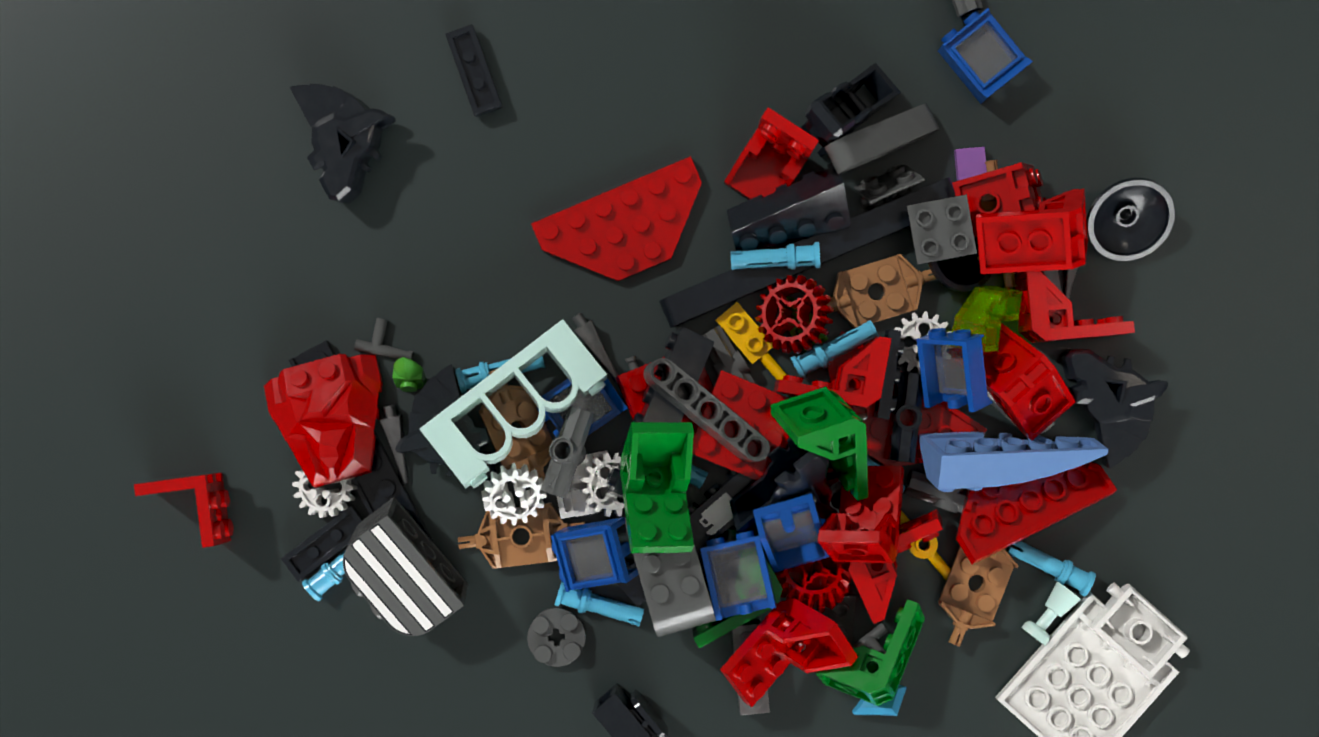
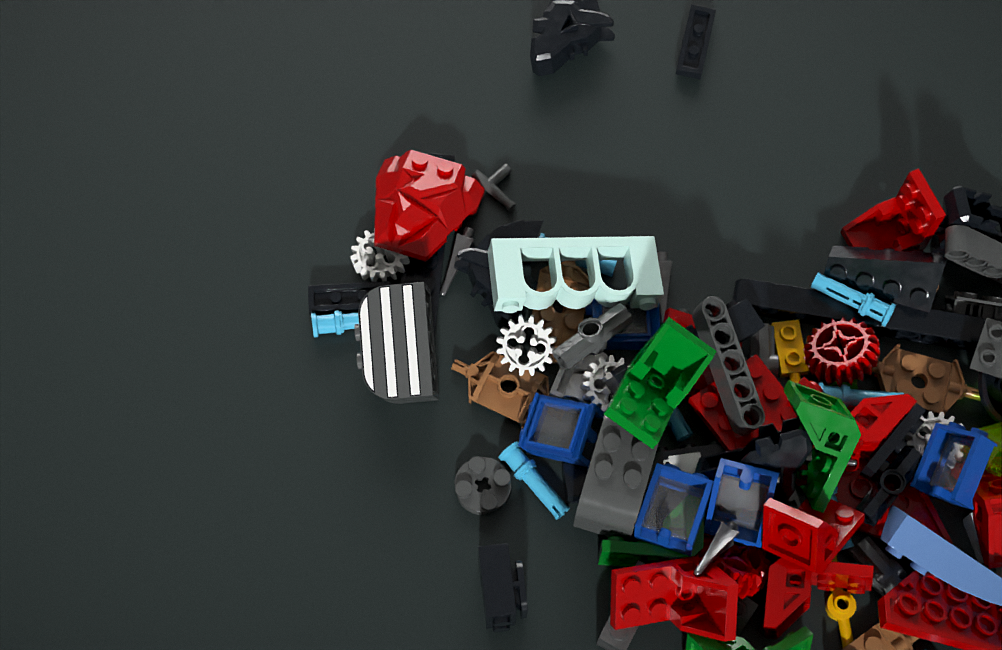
camera: 25 degrees right, 20 degrees down
(210, 500) = (283, 188): red bracket -> none
(408, 375) = (502, 210): bright green plate -> none
(625, 226) = (743, 215): red plate -> none
(796, 573) = (721, 542): none -> flat silver piece

